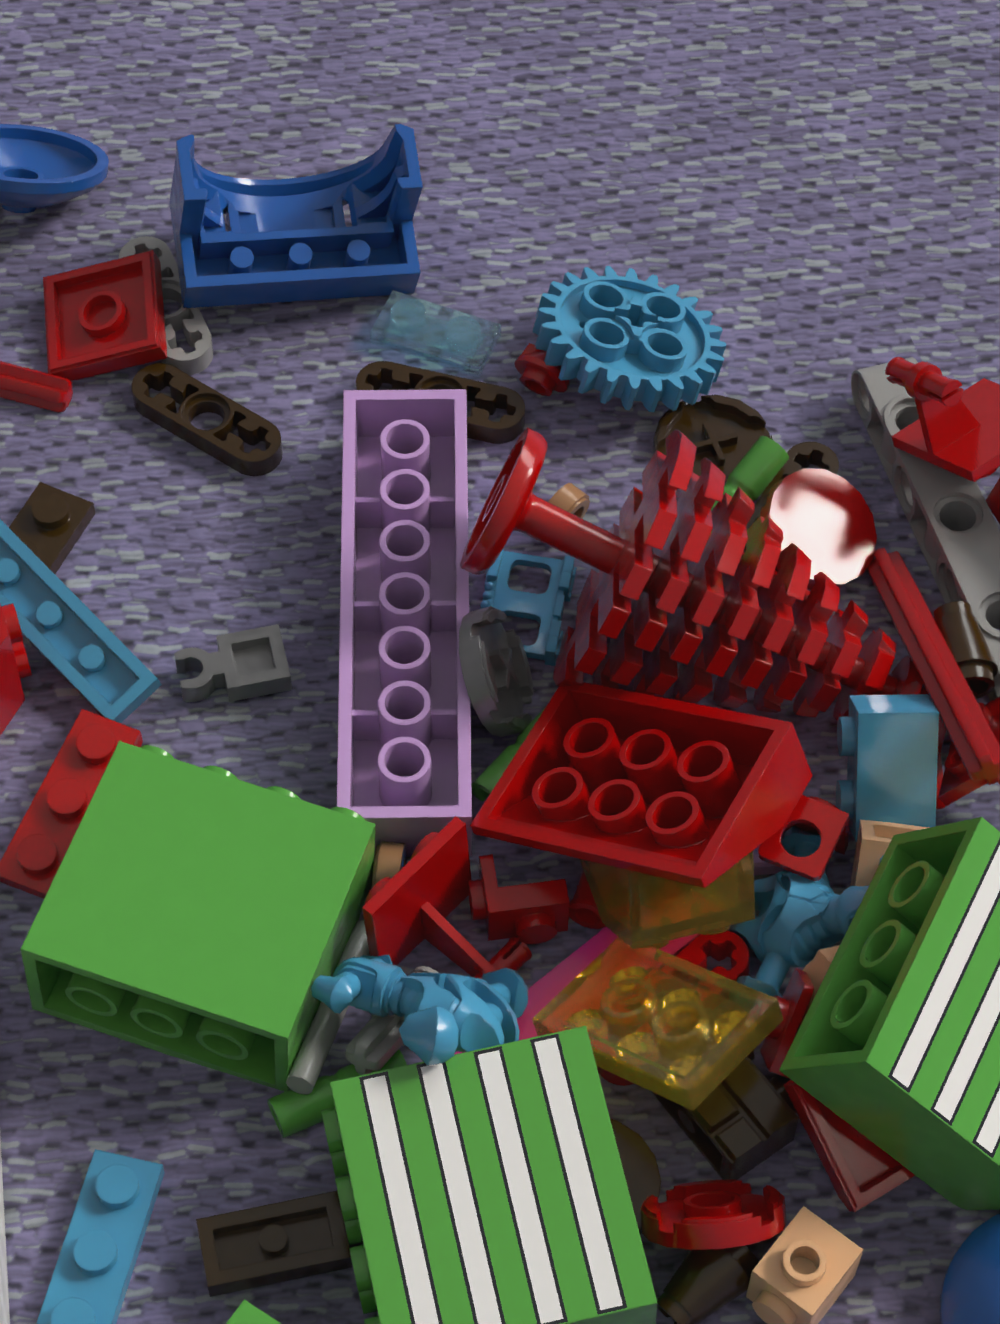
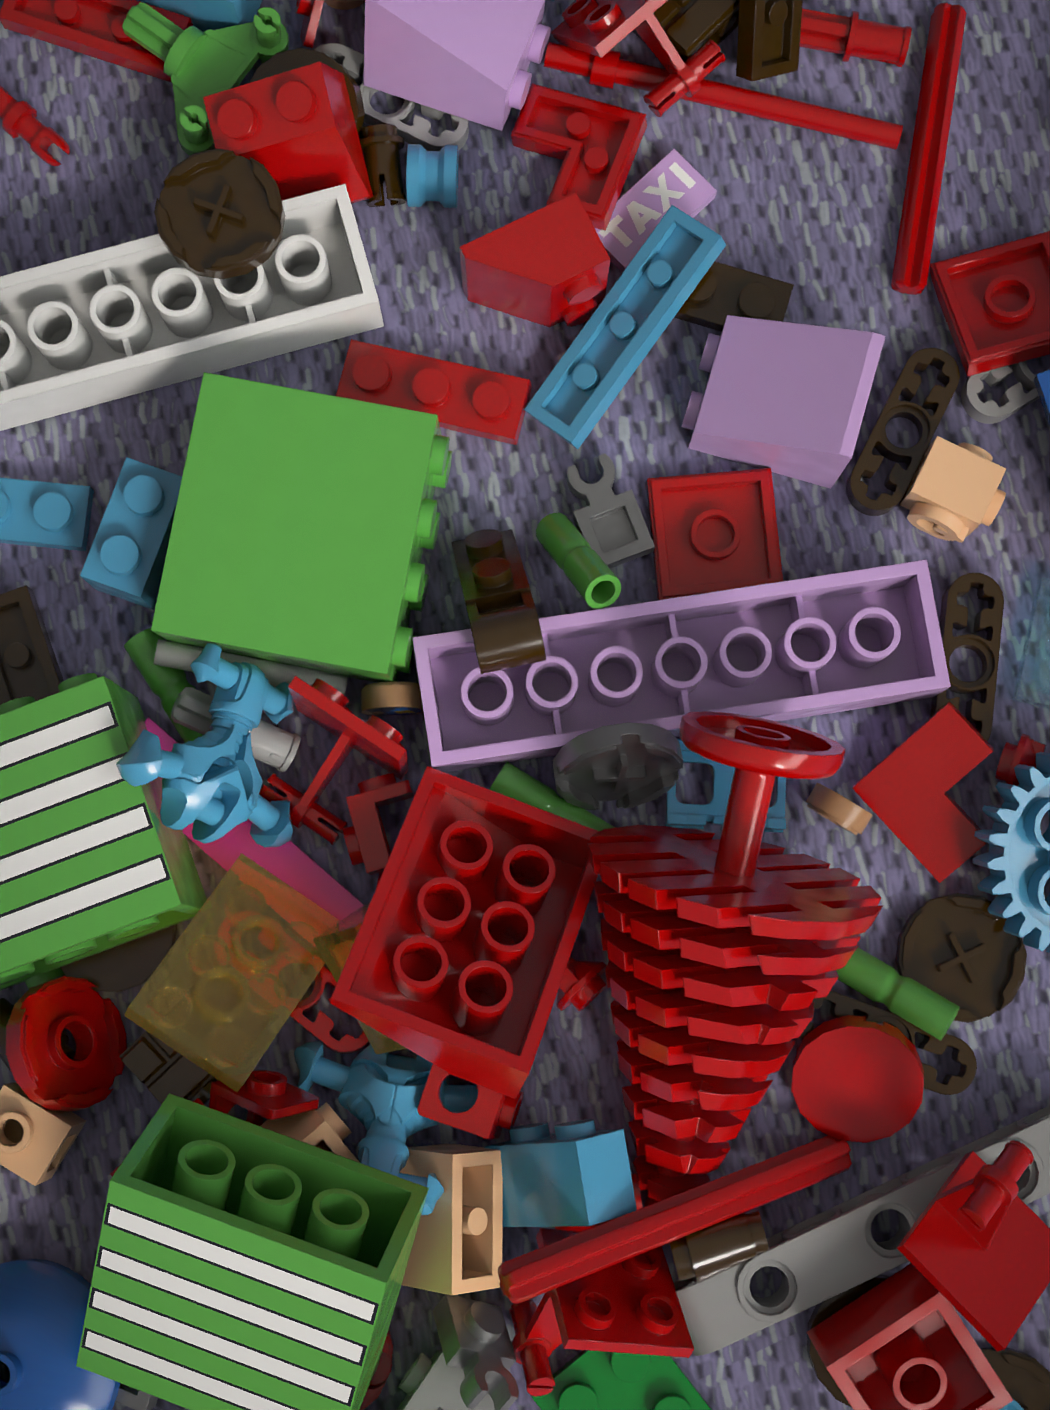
camera: 80 degrees right, 25 degrees up
(157, 488) = (784, 396): none -> lavender slope
(164, 1092) = (134, 535): none -> dark azure brick
(275, 381) = (954, 490): none -> light nougat brick
(275, 579) = (713, 532): none -> red tile
(287, 676) = (578, 561): none -> bright green piece
(336, 724) = (498, 601): none -> dark brown plate
(575, 450) = (912, 788): none -> red tile

